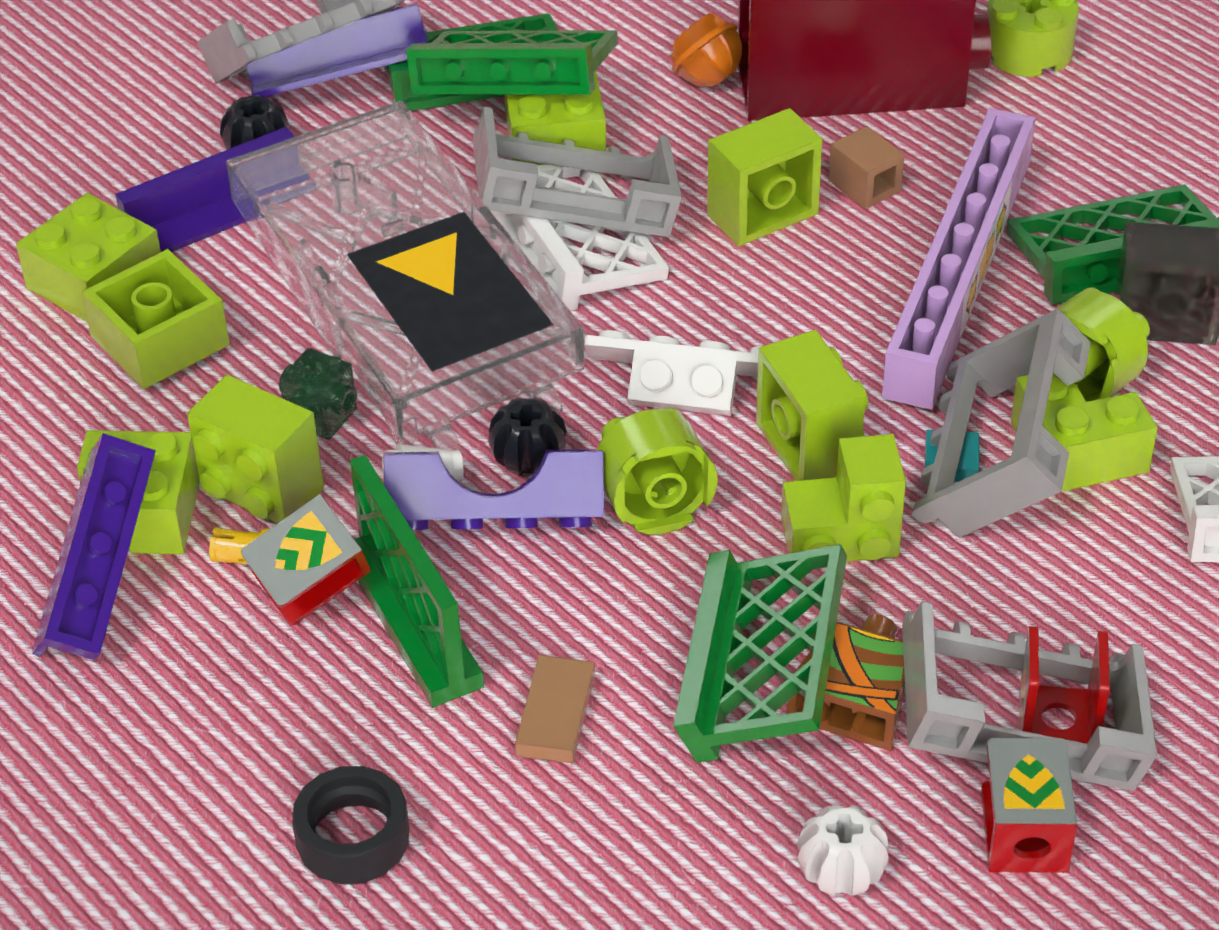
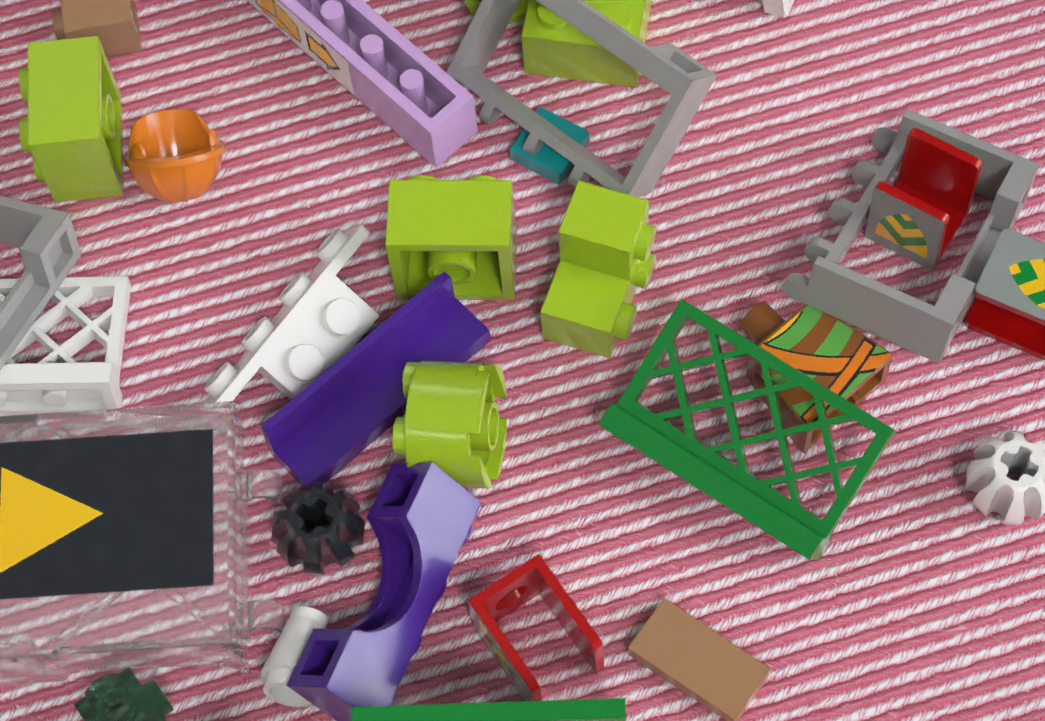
camera: 60 degrees left, 20 degrees up
(500, 562) = (531, 580): none -> red piece
(733, 431) = (364, 388): none -> dark purple panel
(777, 243) = (174, 154): none -> orange piece

